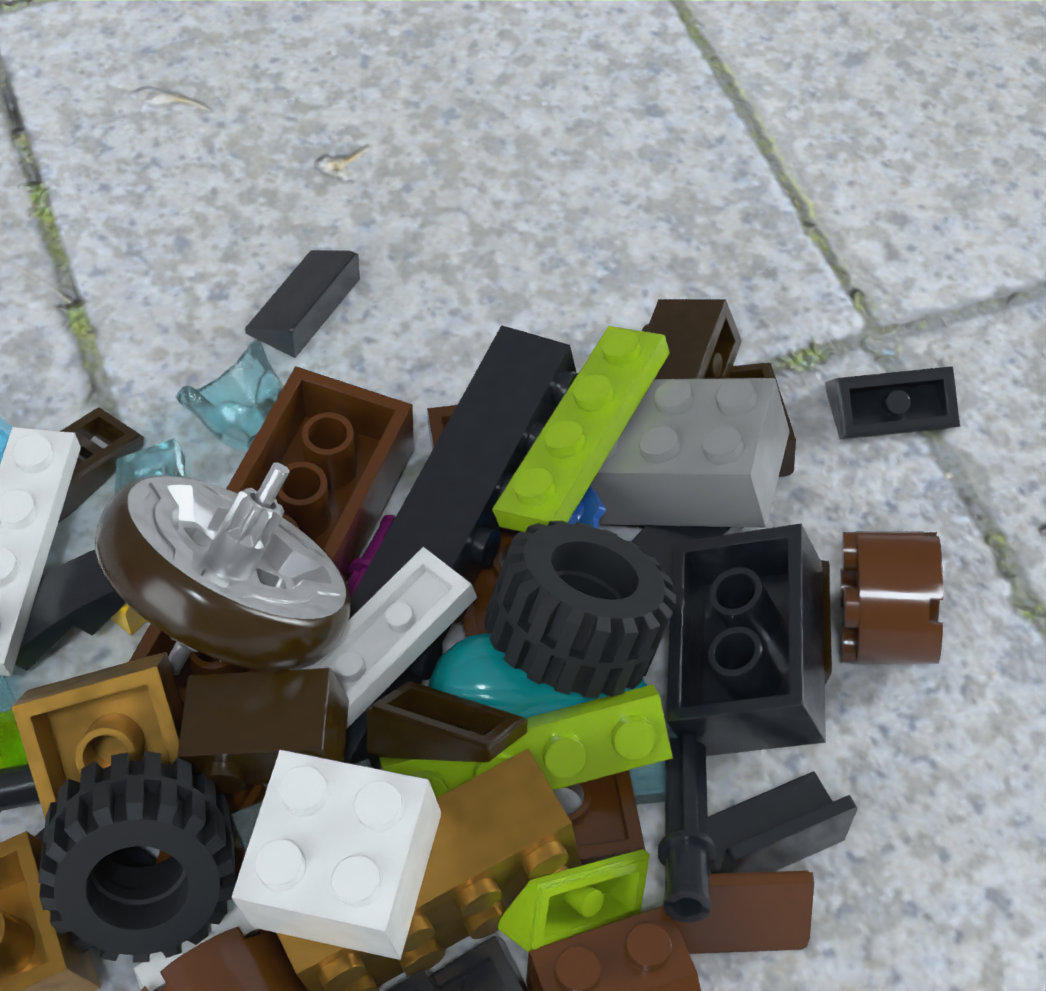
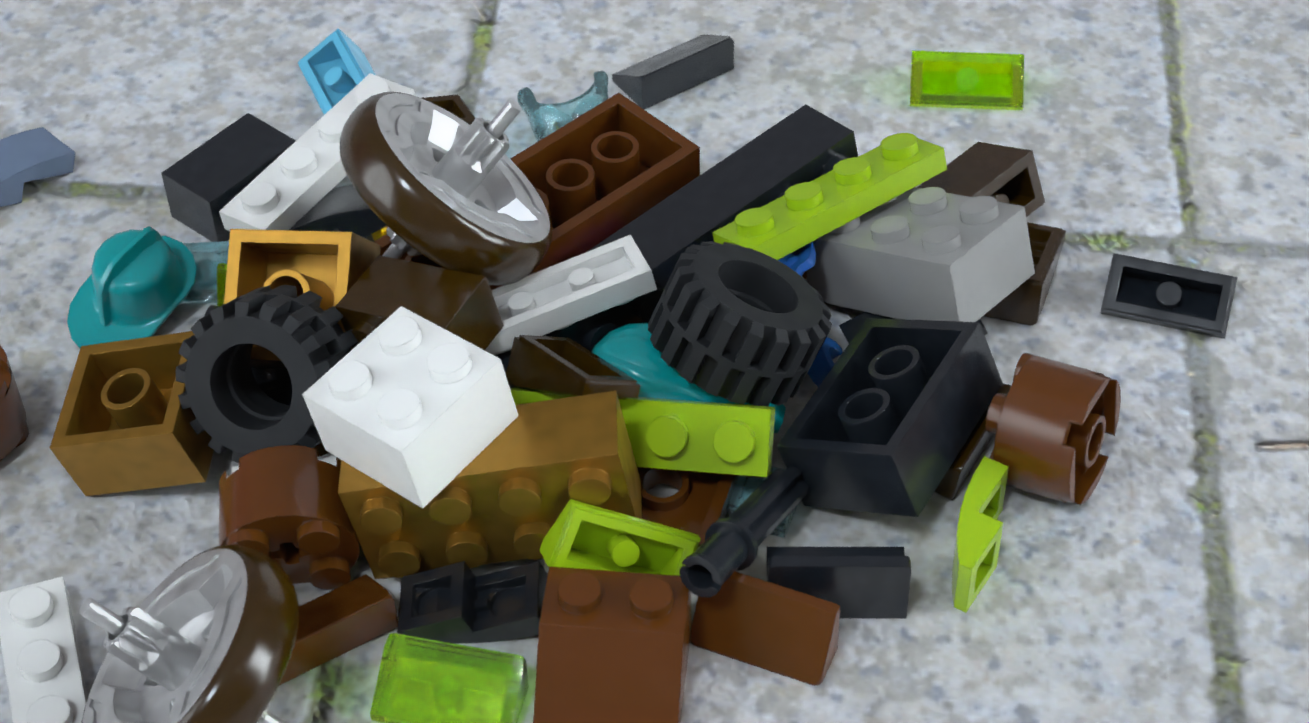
camera: 30 degrees right, 10 degrees down
(593, 223) = (966, 80): none -> clear neon green slope
(872, 740) = (978, 532): none -> lime slope

